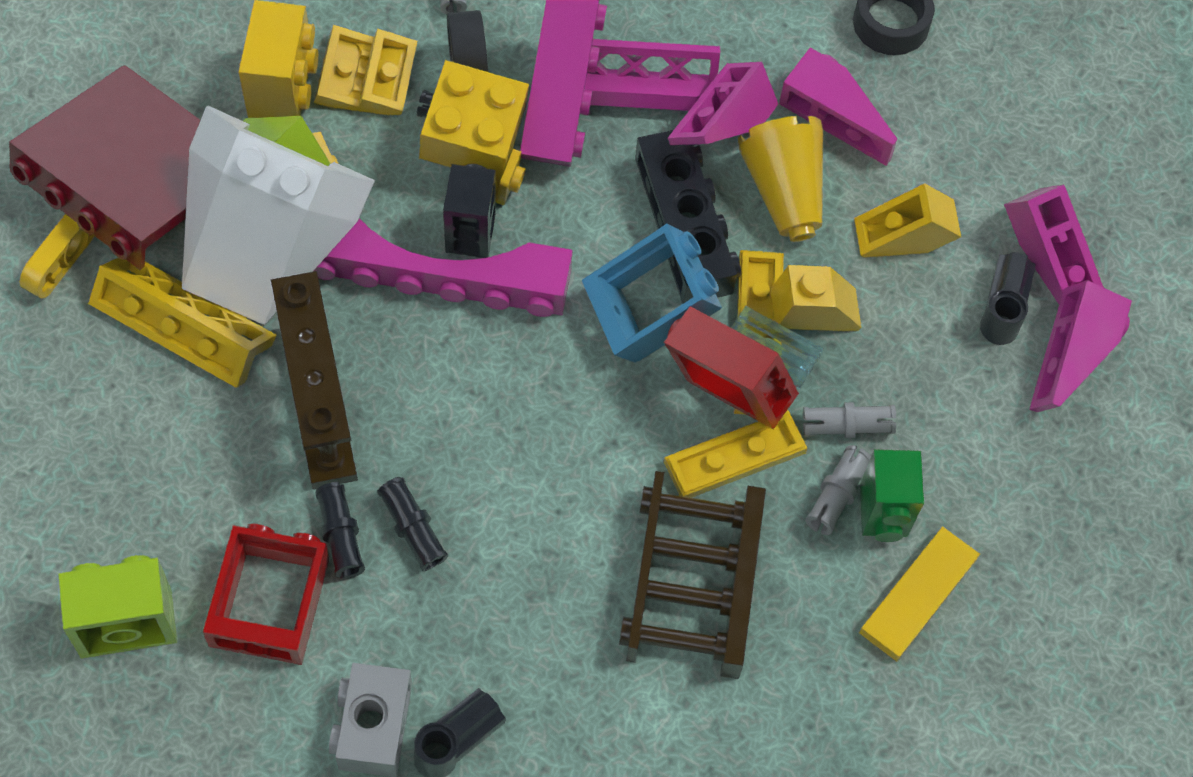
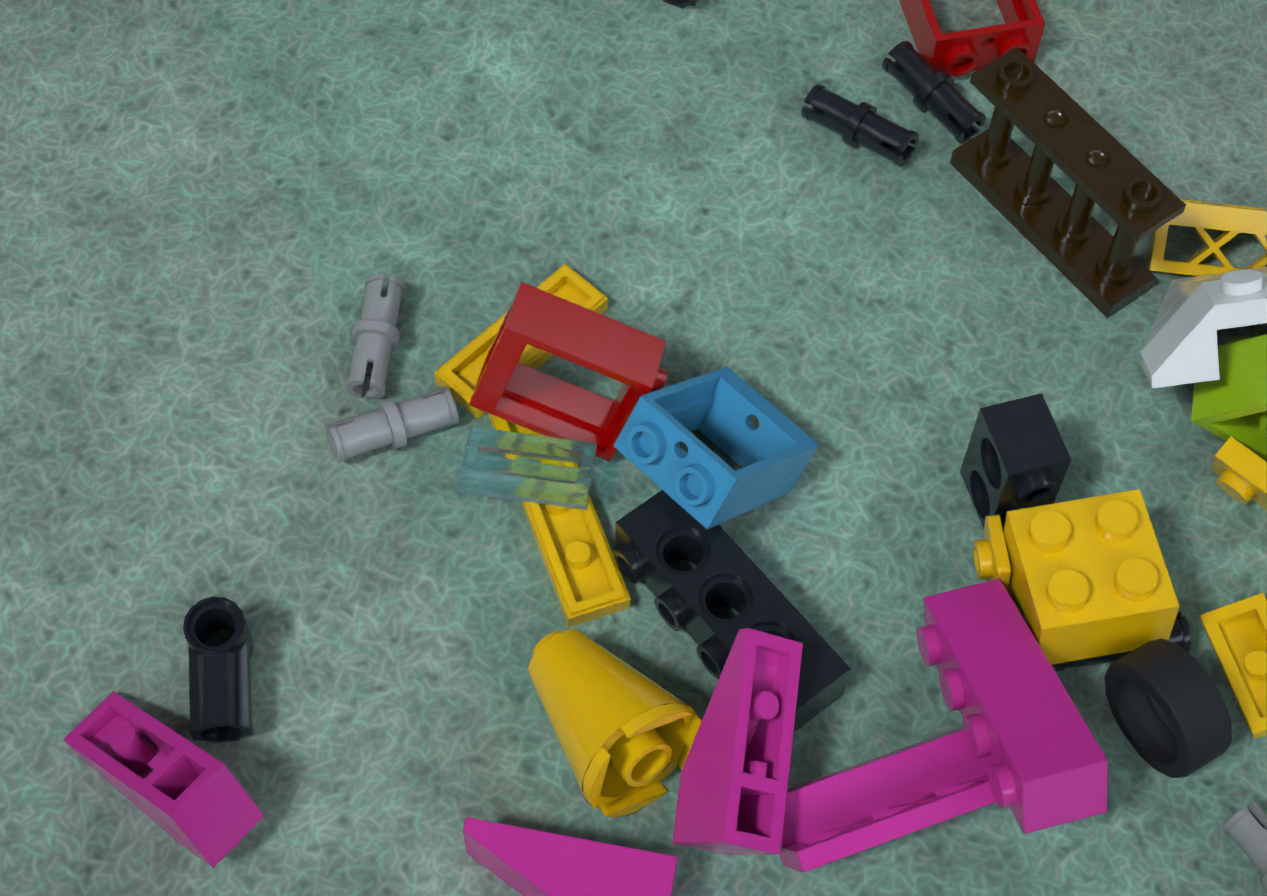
camera: 160 degrees right, 5 degrees down
(525, 278) = (889, 436): dark pink arch -> none
(731, 602) = (469, 212): dark brown fence -> none
(815, 300) = (489, 546): yellow slope -> none
(891, 494) = (304, 316): green brick -> none
(908, 224) = (397, 722): yellow slope -> none
(919, 593) = (235, 268): yellow tile -> none
(1083, 334) = (94, 639): dark pink slope -> none

